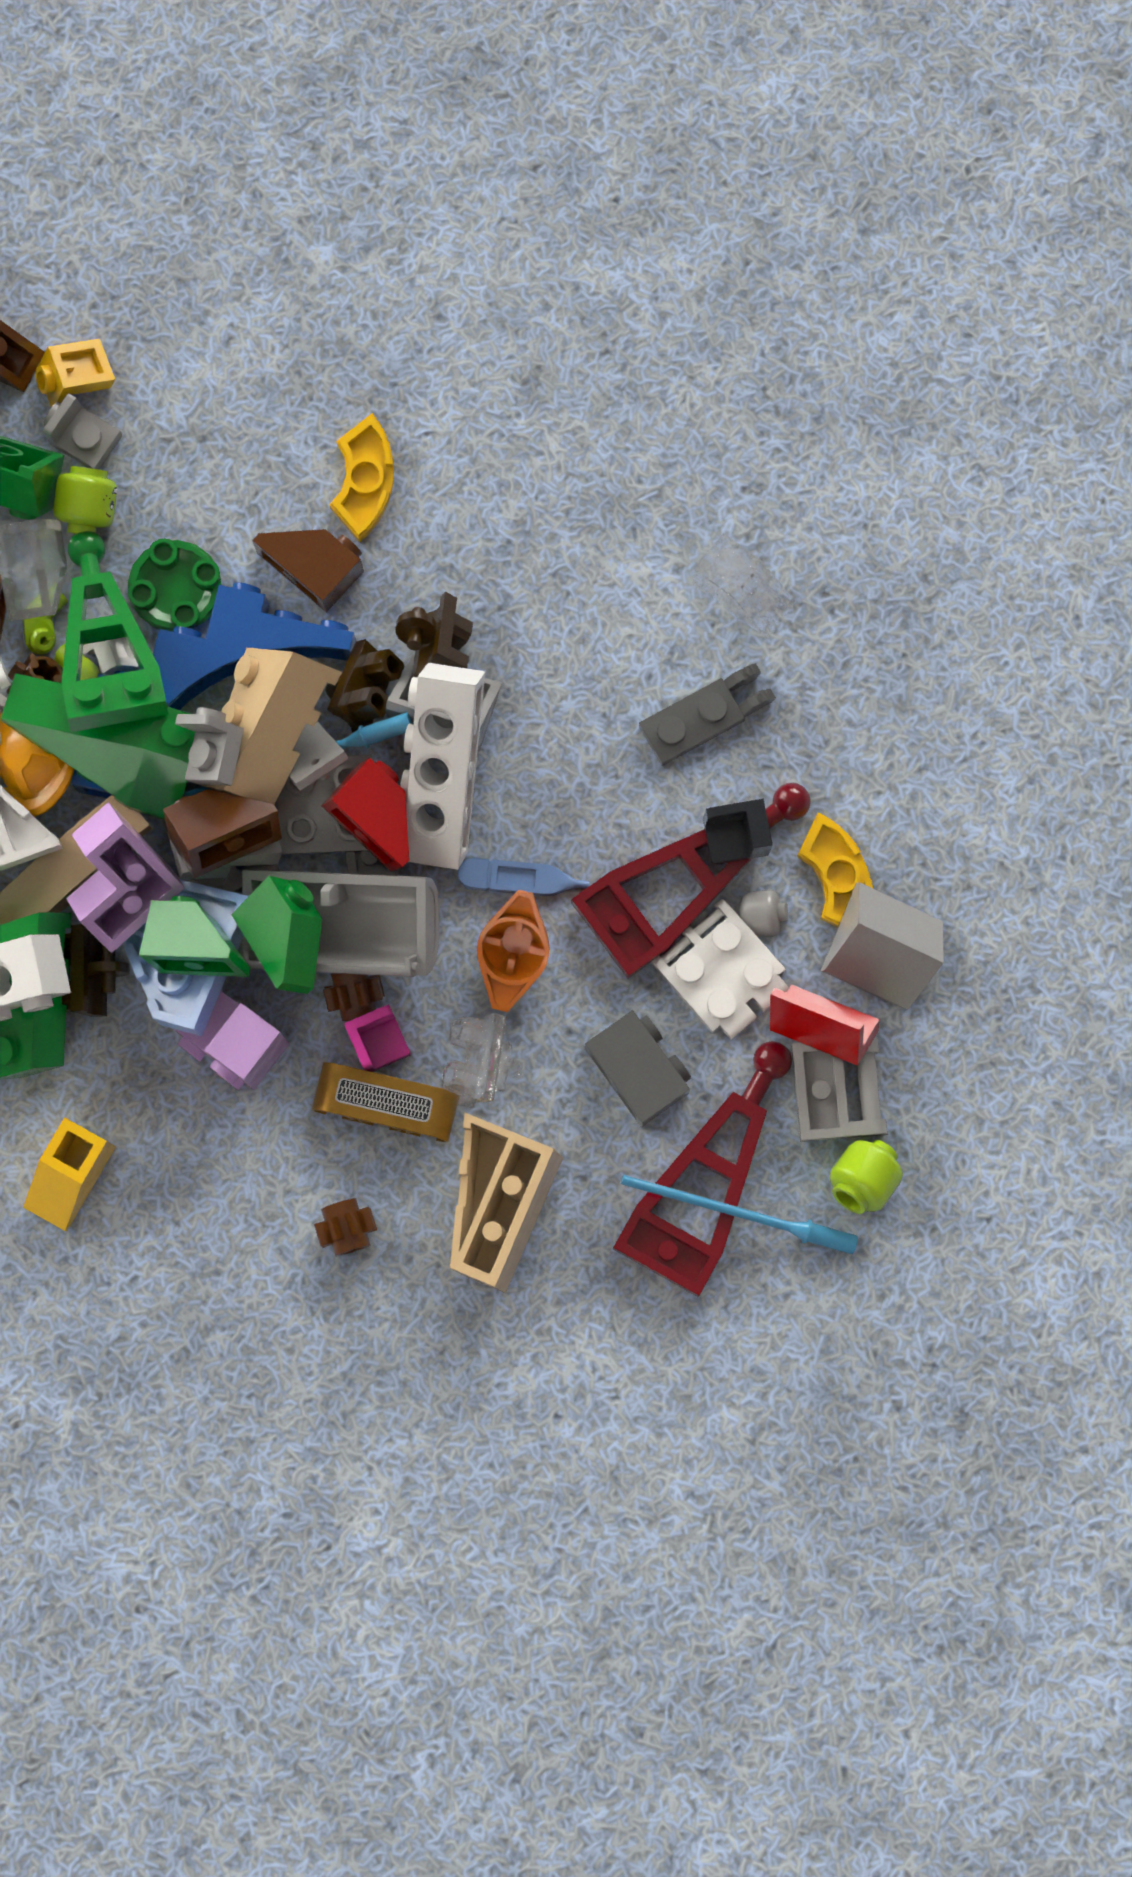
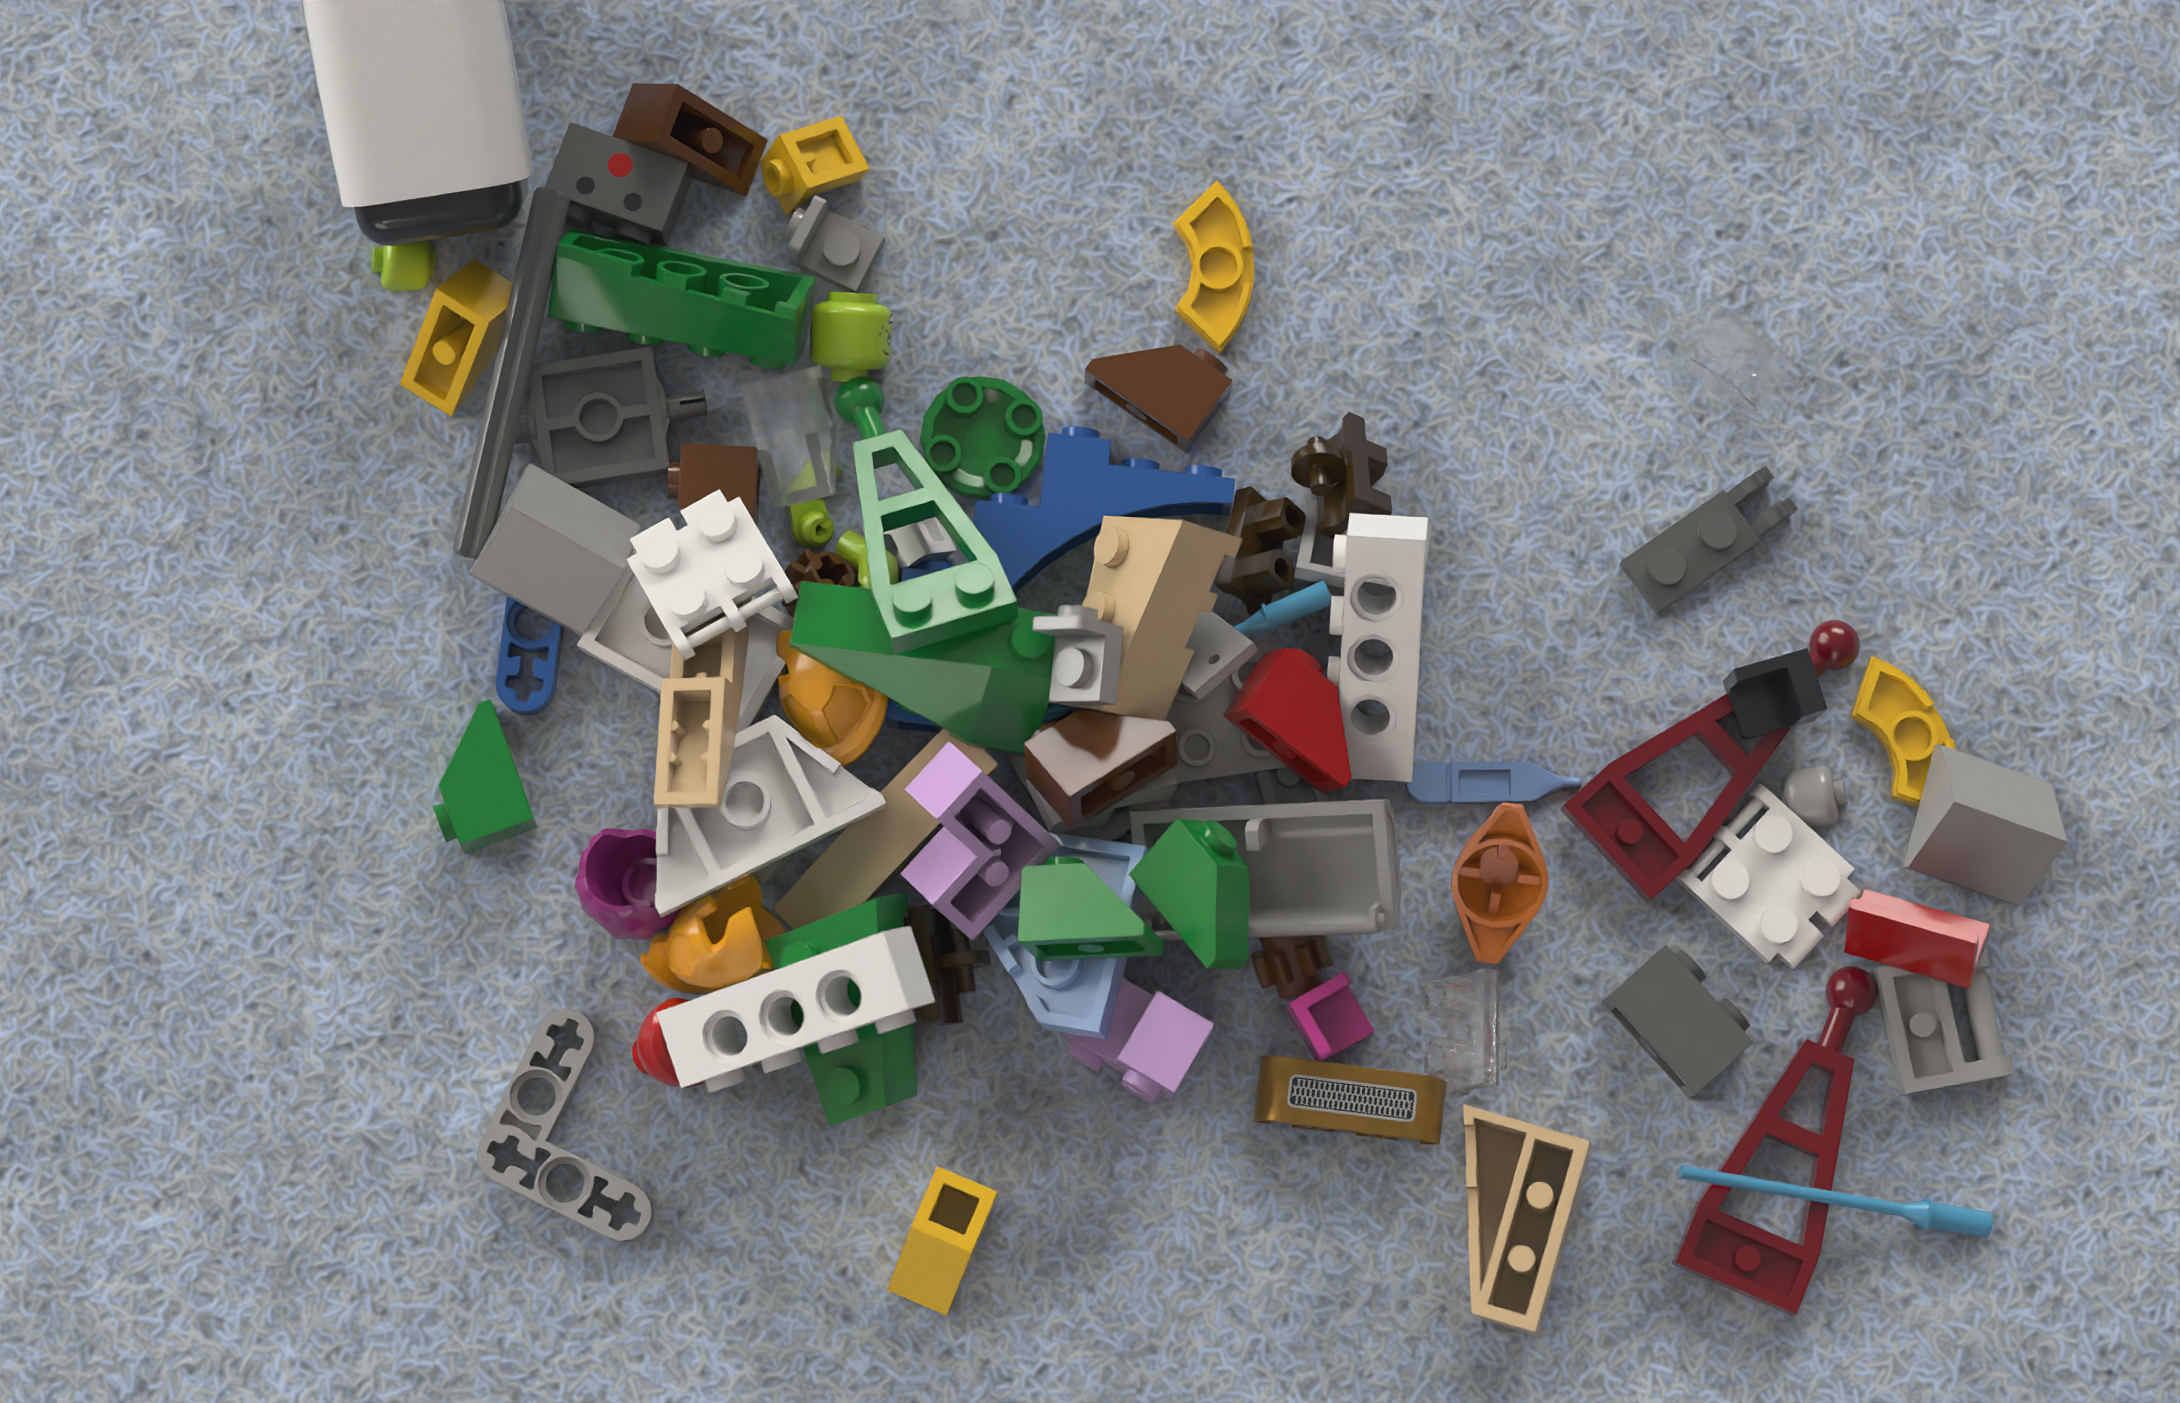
camera: 10 degrees left, 0 degrees up
(345, 1227) = (1319, 1272): reddish brown gear -> none
(866, 1176) = (1995, 1133): lime head -> none

